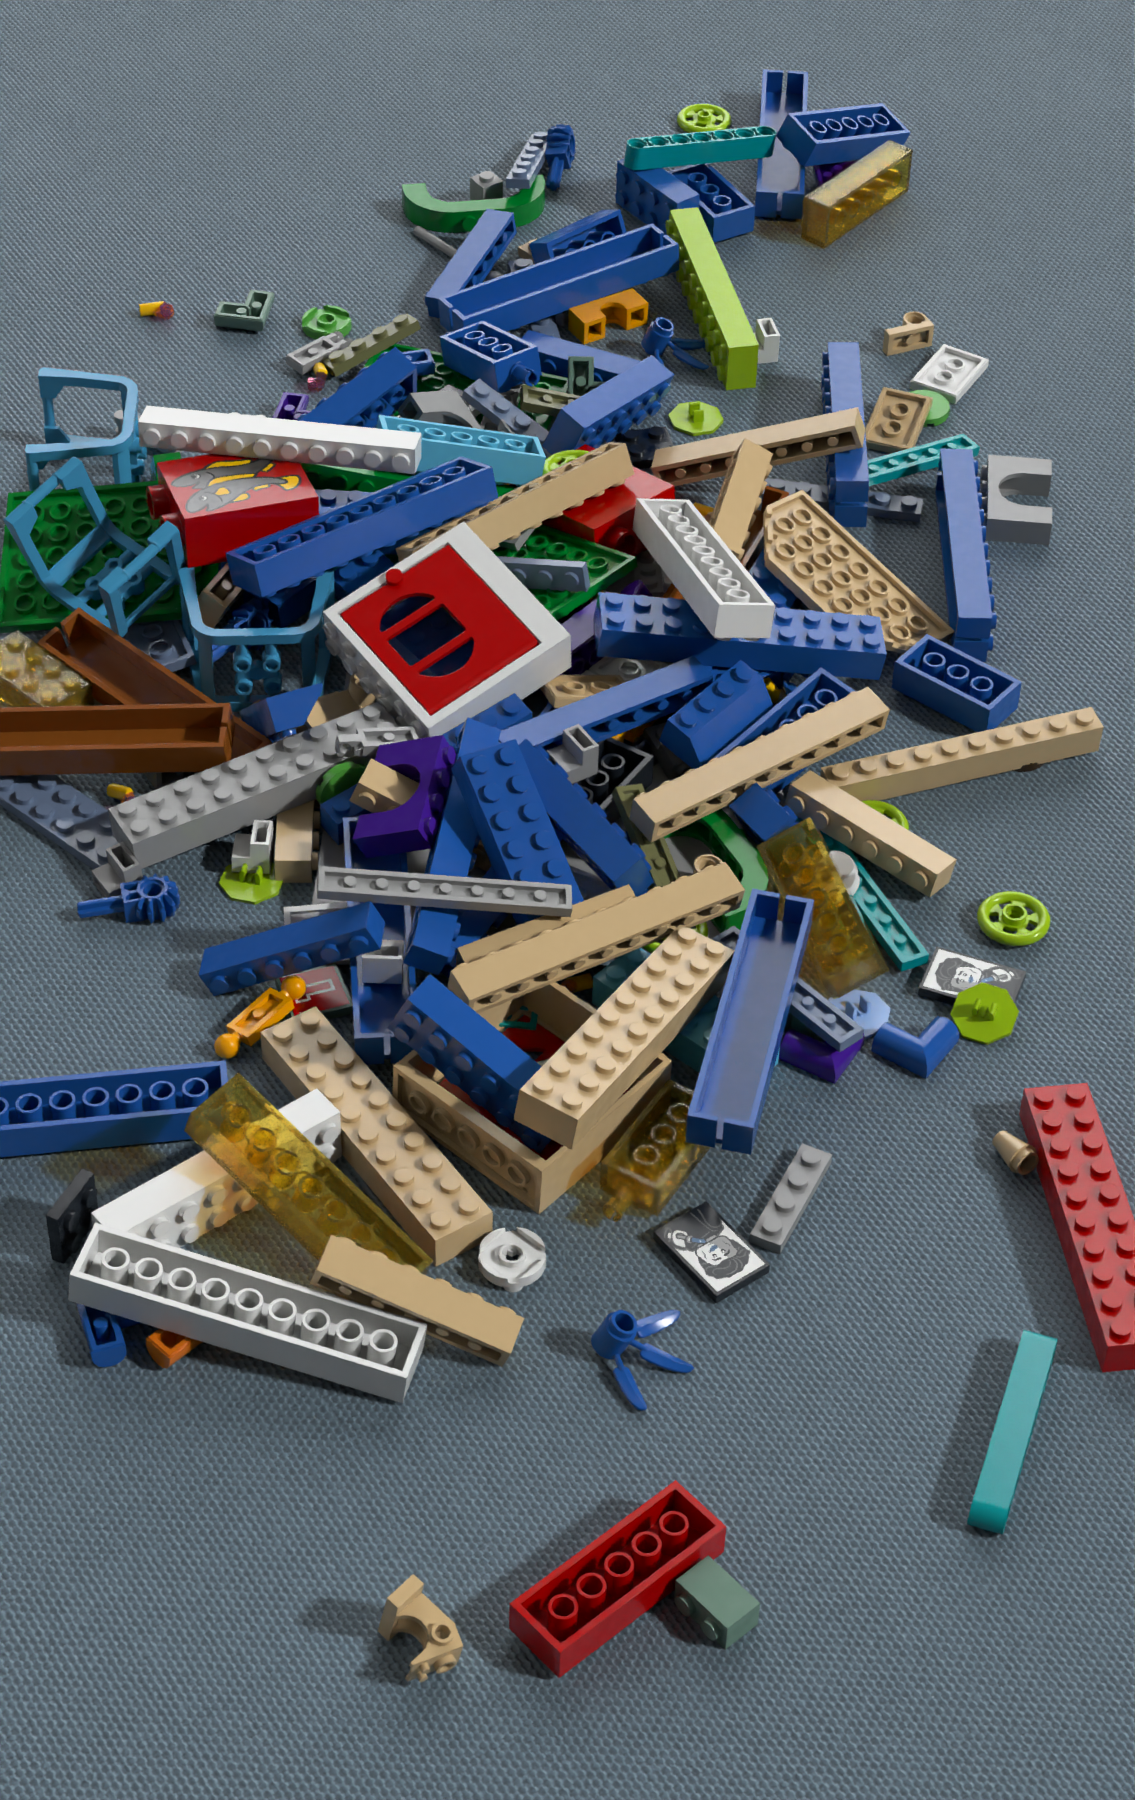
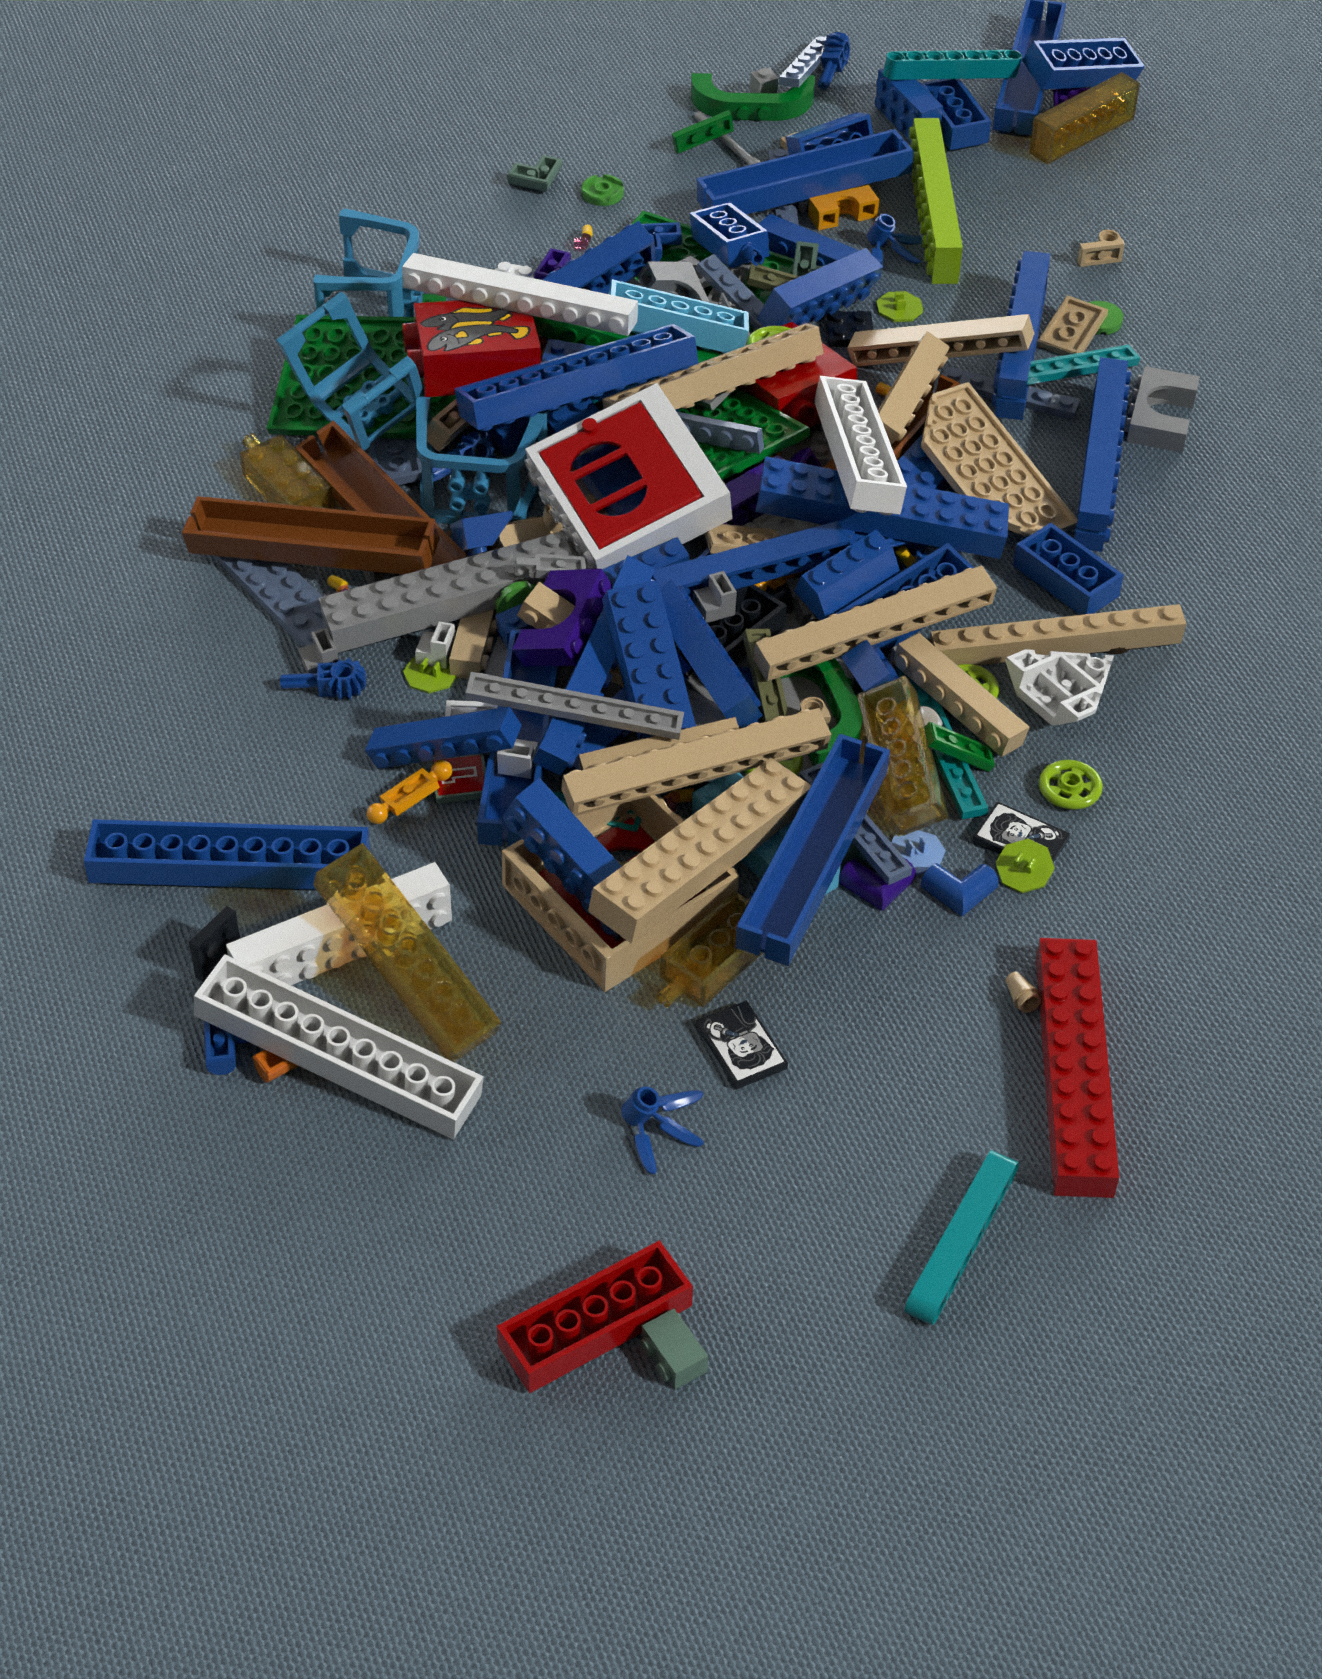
camera: 10 degrees right, 5 degrees up
(159, 309) = (464, 164): arm -> none
(316, 351) = (590, 214): light grey hinge -> none
(372, 344) = (629, 215): olive plate -> none
(380, 1137) = (484, 909): tan brick -> none
(402, 1290) = (470, 1046): tan brick -> none
(414, 1613) = (415, 1320): tan tile -> none
(429, 248) = (702, 132): none -> green tile
(474, 257) = (739, 143): brick -> none
(507, 1273) = (572, 1041): white plate -> none
(703, 118) = (969, 37): lime plate -> none
(768, 340) = (973, 244): white piece -> none
(790, 1198) = (820, 1007): light grey plate -> none
(882, 890) = (959, 746): none -> green tile
(950, 373) = (1131, 288): white tile -> none
(976, 809) = (1060, 684): none -> white wedge

